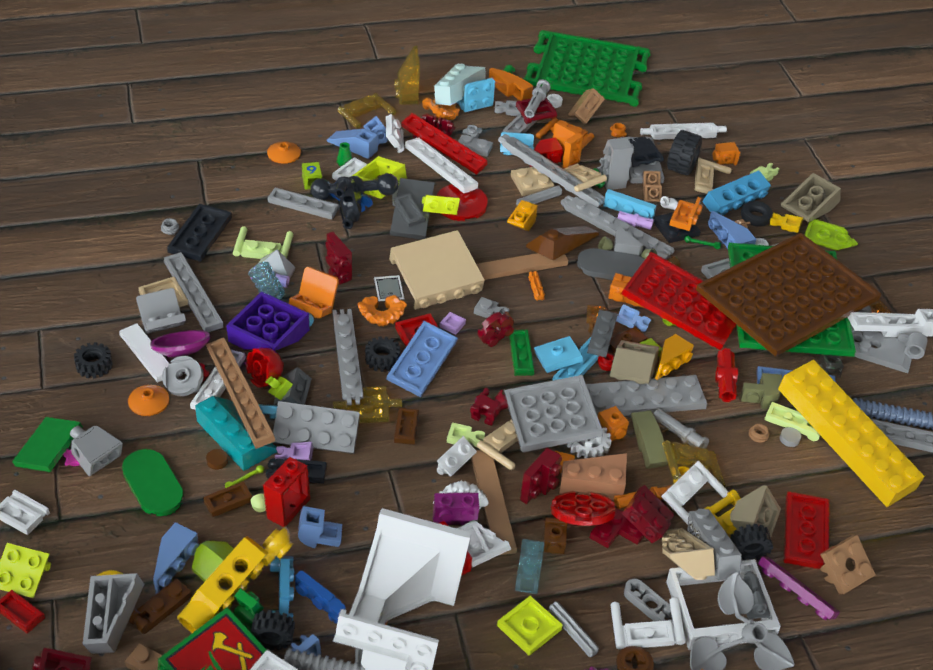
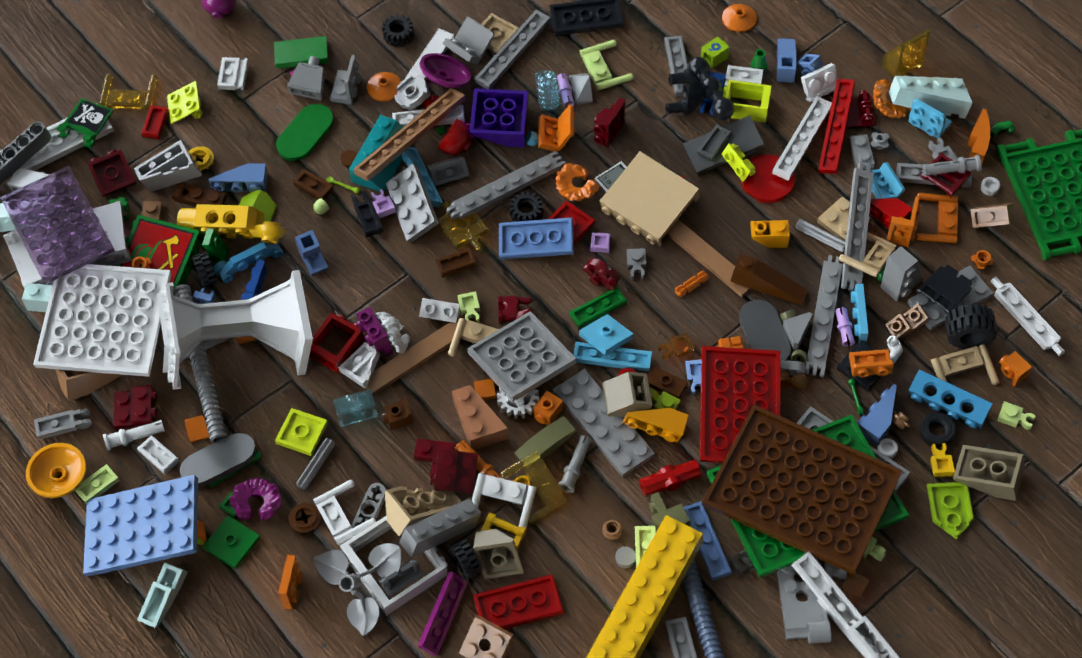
camera: 70 degrees right, 15 degrees up
(127, 420) = (346, 83): none -> light grey bracket
(279, 387) = (438, 157): lime tile -> none
(289, 475) = (320, 224): red window -> none
(362, 107) = (849, 40): clear yellow plate -> none
(541, 475) = (447, 374): dark red plate -> none
(583, 509) = (432, 421): red tile -> none
(602, 333) = (653, 357): dark grey plate -> none

